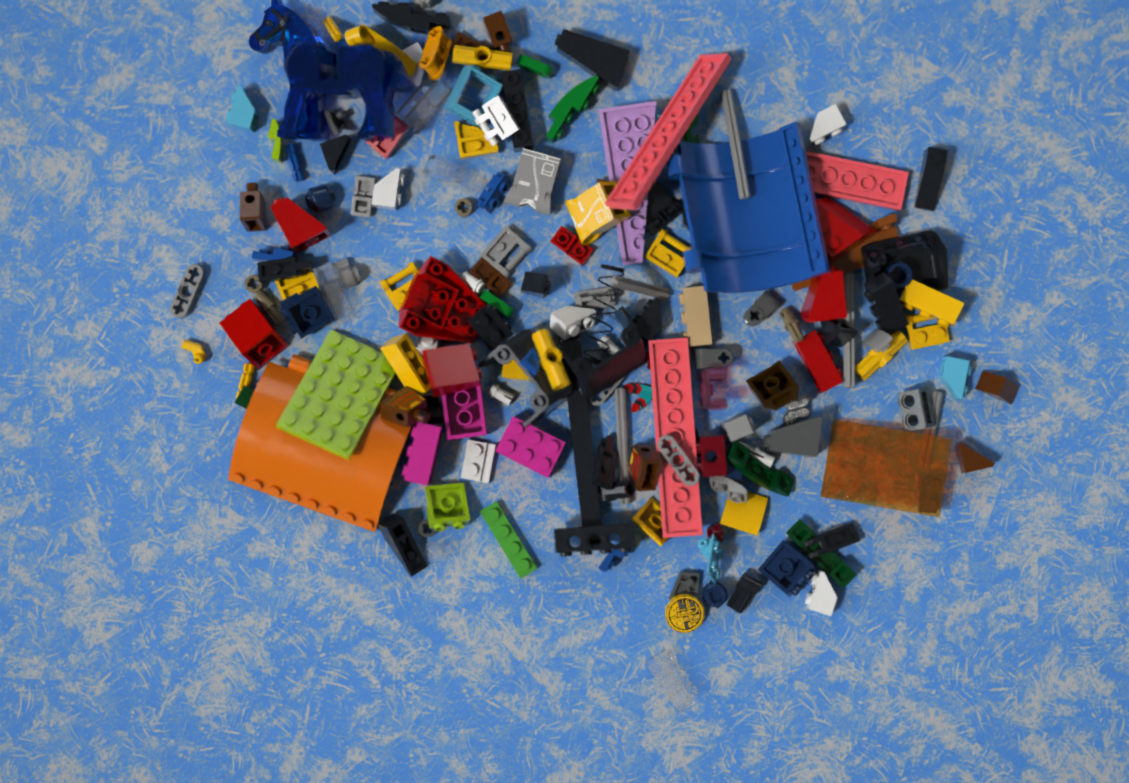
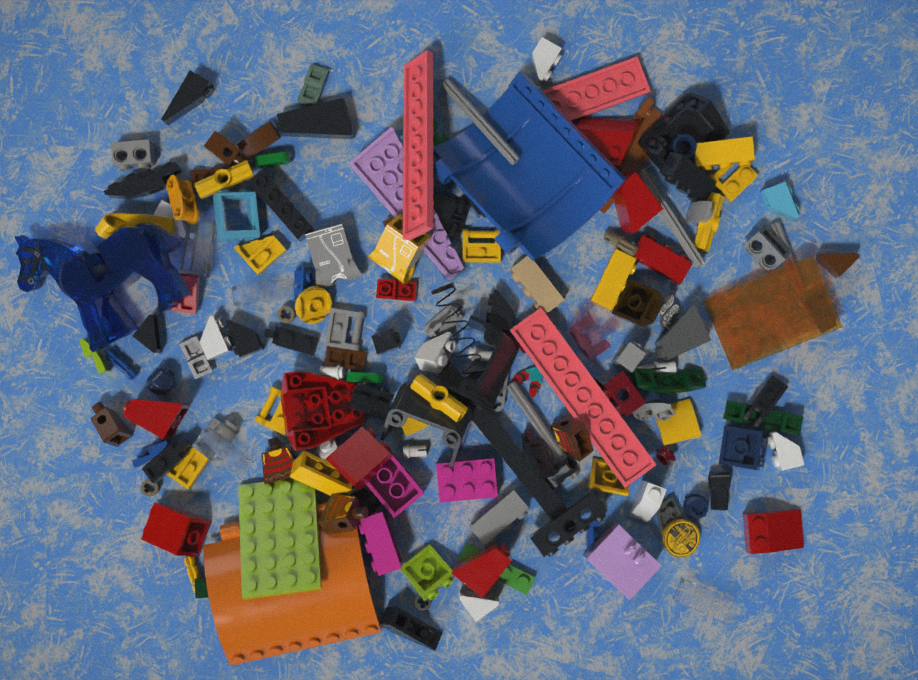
camera: 30 degrees left, 0 degrees up
(197, 350) = (136, 572): yellow arm -> none
(198, 280) = (89, 515): light grey beam -> none
(242, 113) = (51, 349): medium azure slope -> none
(269, 307) = (175, 499): dark tan axle -> none
(306, 312) = (208, 484): dark blue plate -> none
(332, 28) = (83, 233): yellow axle -> none
(335, 120) = (133, 308): dark grey piece -> none
(376, 329) = (277, 462): none -> torso
(414, 207) = (245, 339): none -> black slope
(455, 233) = (293, 340): none -> black hinge
(473, 559) = (478, 606): none -> white slope
(478, 461) = (430, 518): white plate -> none
(492, 213) = (313, 304): none -> yellow tile
(497, 530) = (483, 568): none -> red slope
(500, 118) = (269, 220): white plate -> none
(531, 362) = (424, 410): blue tile -> none
(533, 42) = (258, 140): none -> reddish brown slope
(538, 497) = (499, 517): none -> light grey brick
(574, 101) = (323, 167): green slope -> none
(610, 23) = (313, 85): none -> sand green slope
(621, 599) = (622, 560): none -> lavender piece
(639, 287) = (474, 290): light grey axle -> none
(665, 451) = (609, 426): light grey beam -> none
(674, 562) = (647, 501): none -> white slope
(709, 358) = (569, 313): dark grey piece -> none
(713, 551) = (673, 471): medium azure hinge -> none
(762, 307) = (587, 243): dark grey piece -> none
(765, 354) = (613, 280): none -> yellow brick
(768, 657) = (773, 531): none -> red slope
(837, 333) = (662, 226): black slope -> none
(930, 178) = (658, 49): black slope -> none
(997, 387) = (820, 189): reddish brown slope -> none

